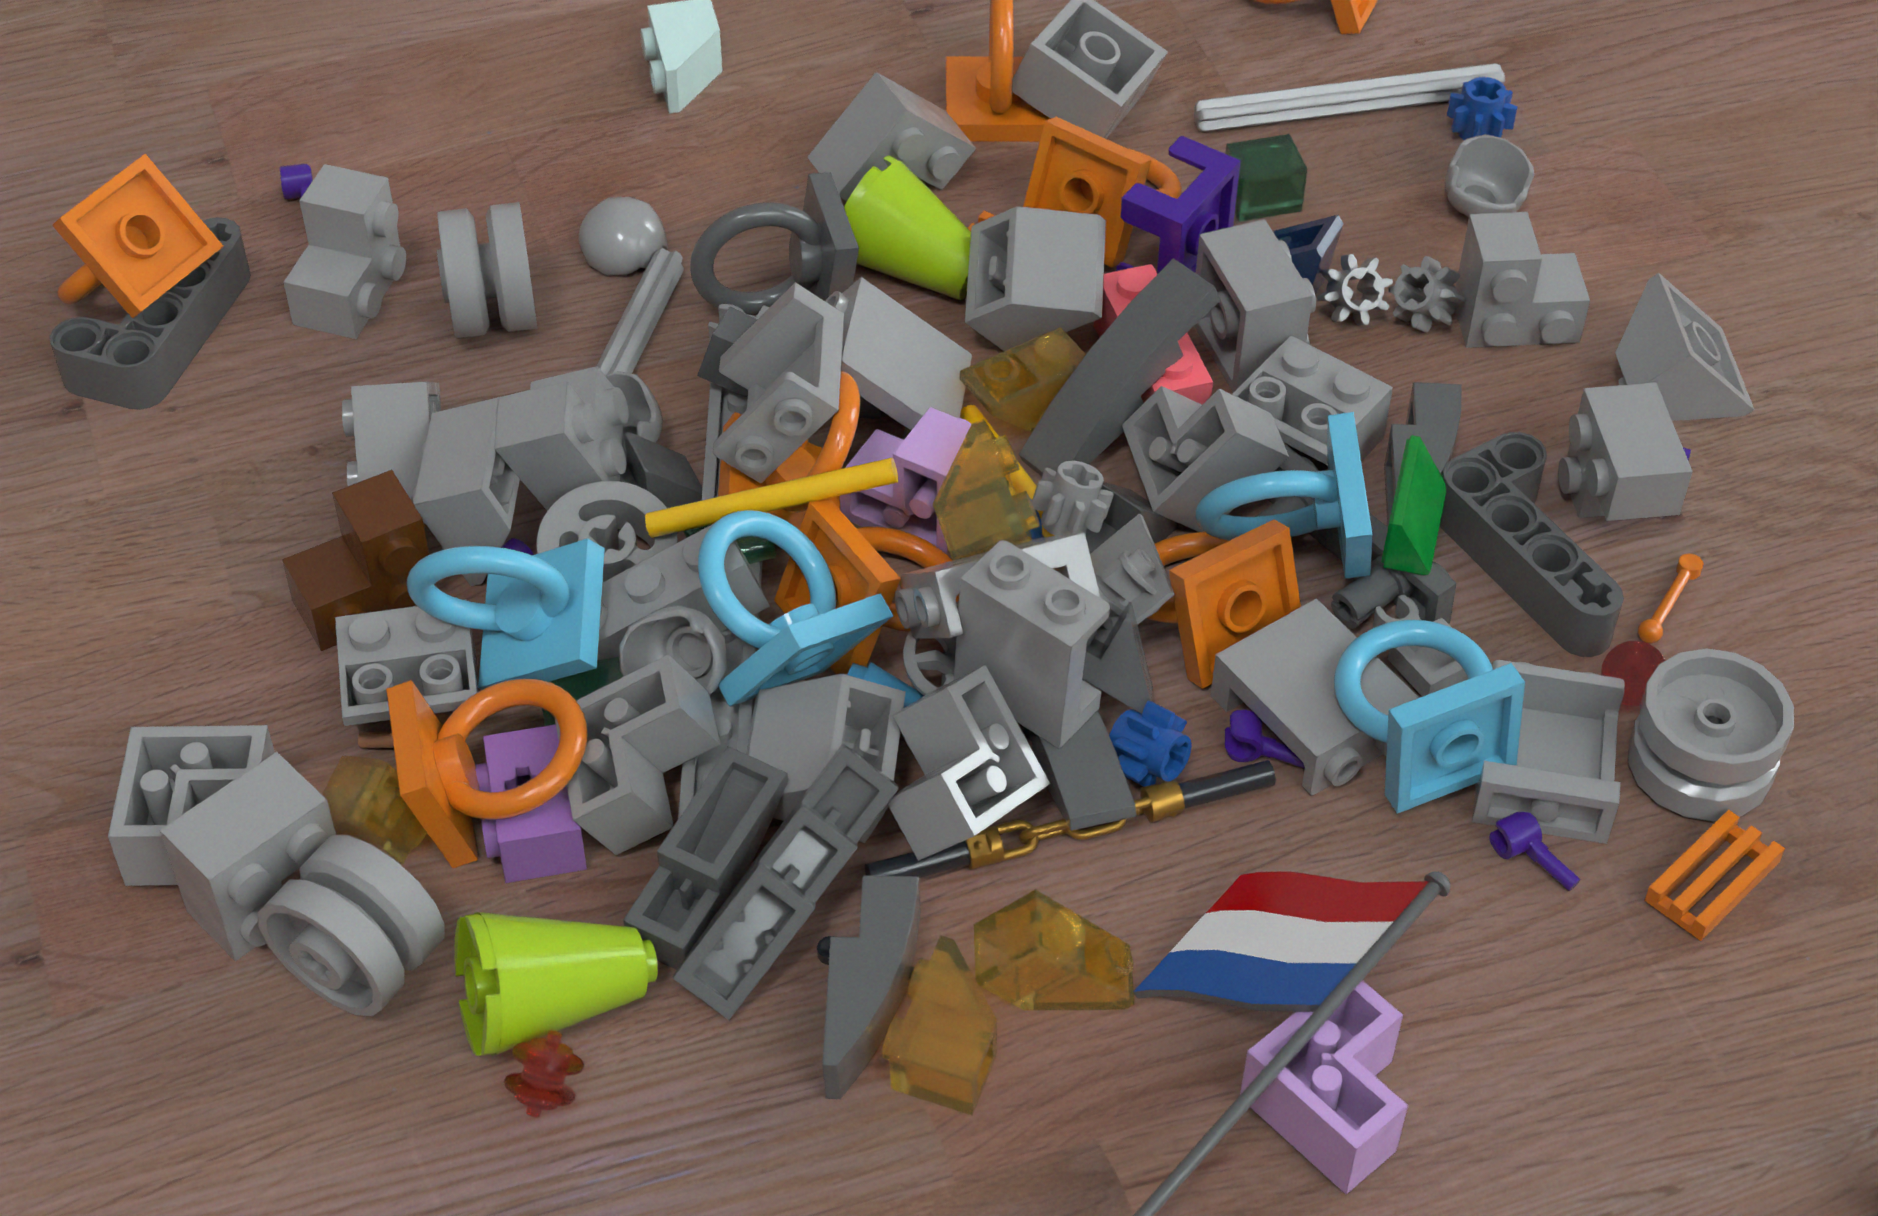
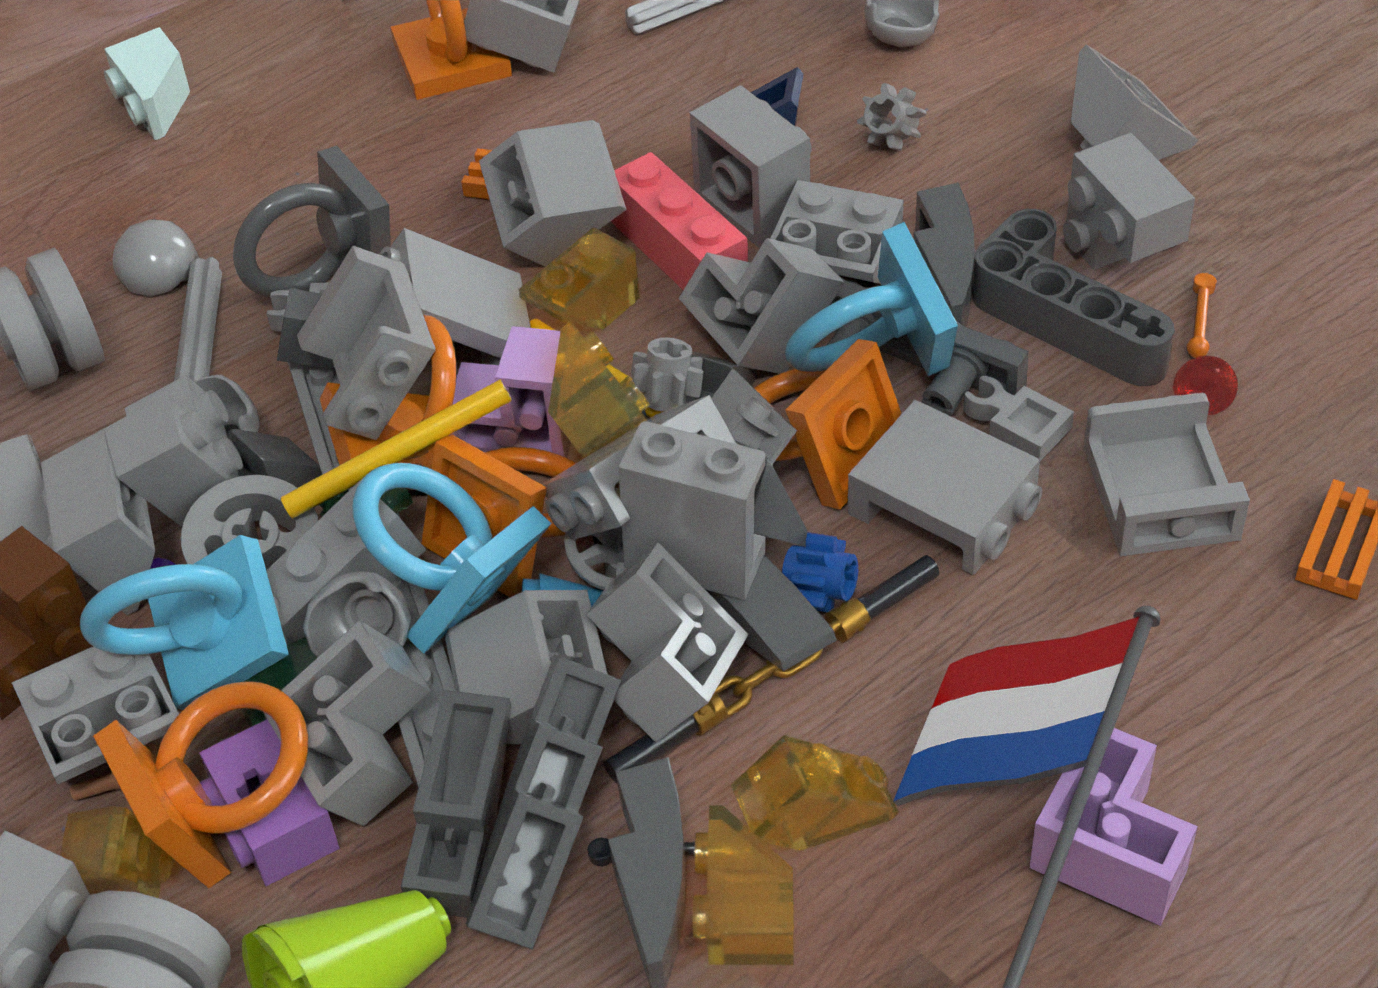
camera: 15 degrees left, 0 degrees up
(894, 123) = (367, 108): light grey brick -> none
(908, 231) = (425, 181): lime cone -> none
(1091, 176) = (568, 89): orange tile -> none
(1119, 370) = (661, 249): dark grey slope -> none
(1200, 209) = (666, 108): dark purple panel -> none
(1246, 743) = (900, 545): dark purple hand -> none
(1269, 177) = (710, 57): clear green brick -> none
(1369, 284) = (840, 121): light grey gear -> none
(1415, 512) = (968, 299): green slope -> none
(1444, 736) = (1079, 488): medium azure tile -> none
(1514, 289) = (966, 89): light grey brick -> none
(1521, 834) = (1173, 552): dark purple hand -> none
(1710, 734) = (1295, 418): light grey wheel -> none

